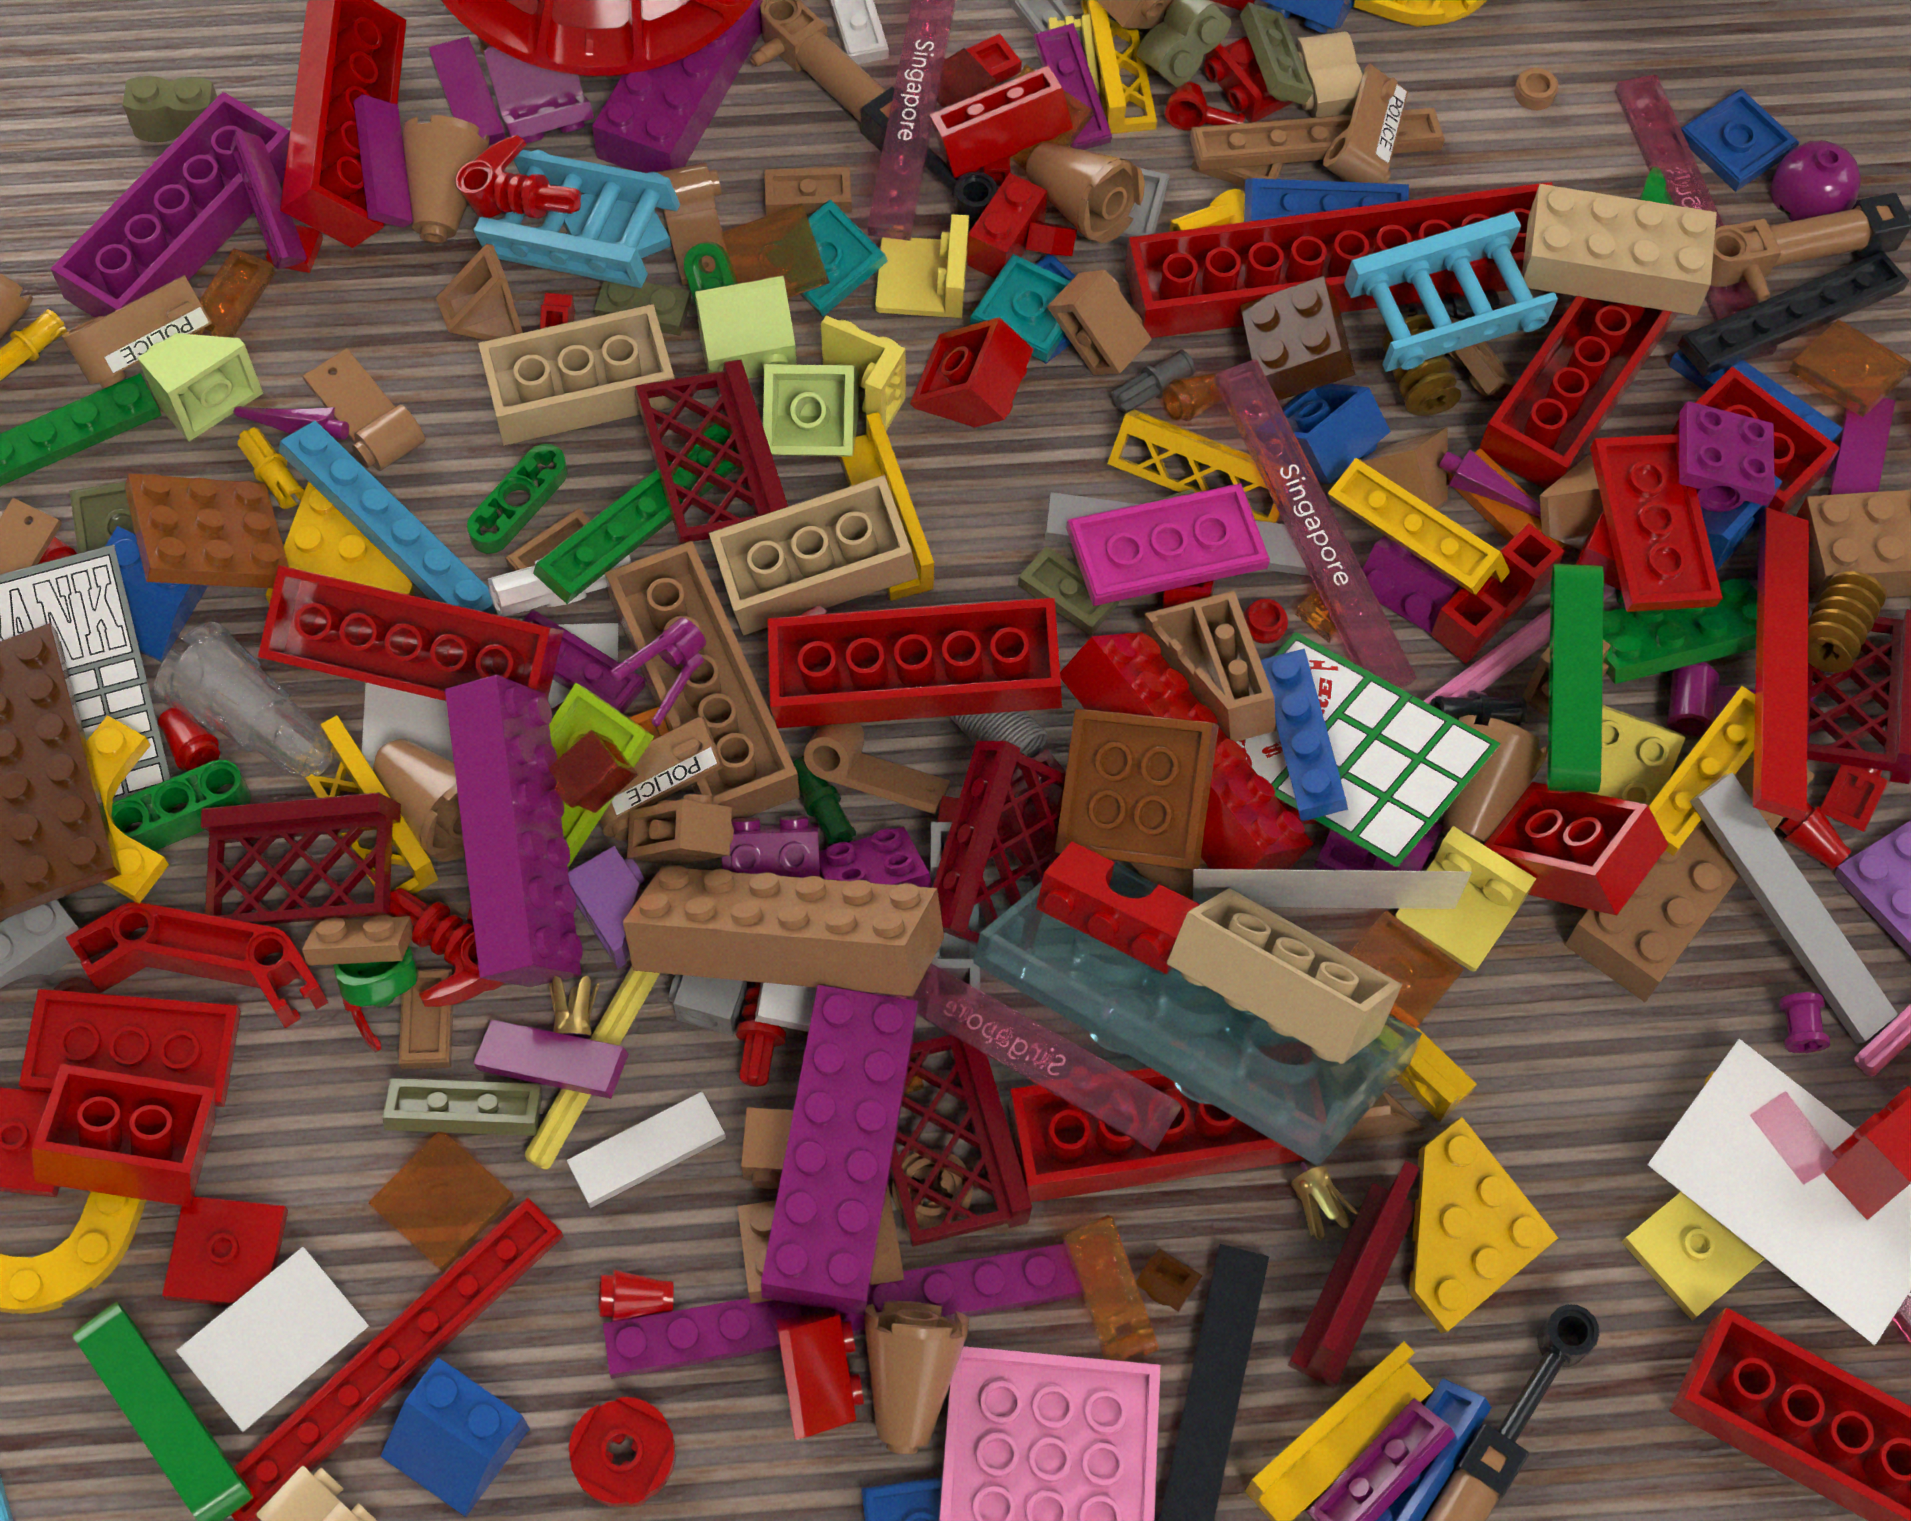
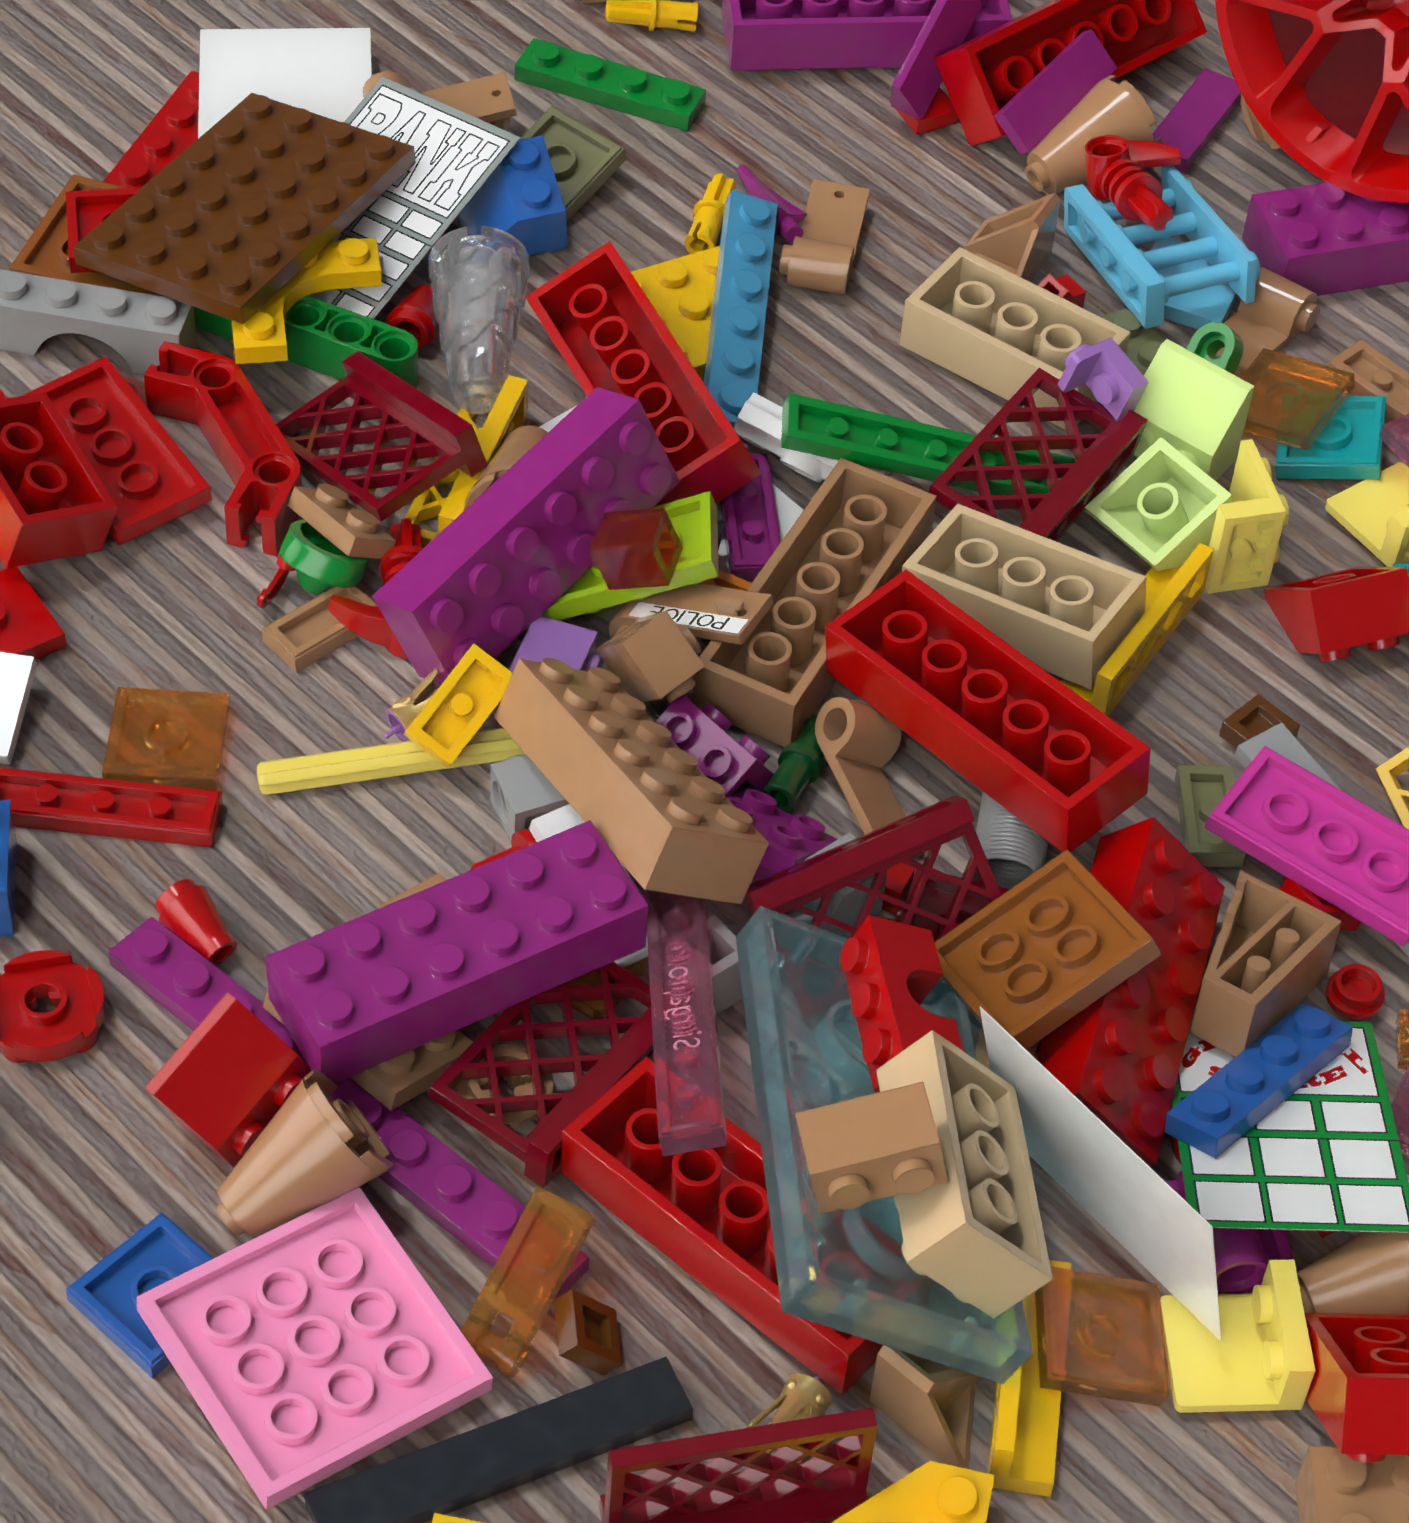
camera: 50 degrees right, 15 degrees down
(114, 342) = (733, 53): medium nougat door -> none
(199, 379) = (732, 115): yellowish green slope -> none
(205, 531) = (601, 193): dark orange plate -> none
(235, 292) = (820, 99): clear orange plate -> none
(462, 1107) = (262, 693): olive plate -> none
(515, 518) = (876, 370): green beam -> none
(535, 97) = (1239, 151): magenta bracket -> none
(551, 1059) = (361, 722): tile -> none
(608, 985) = (460, 706): none -> yellow plate
(646, 1149) = (343, 848): white tile -> none
(675, 646) = (820, 532): magenta plant -> none
(691, 352) = (1107, 374): none -> medium lavender bracket
(1025, 504) = (1254, 719): none -> reddish brown plate
(1268, 1024) = (872, 1147): none -> medium nougat brick

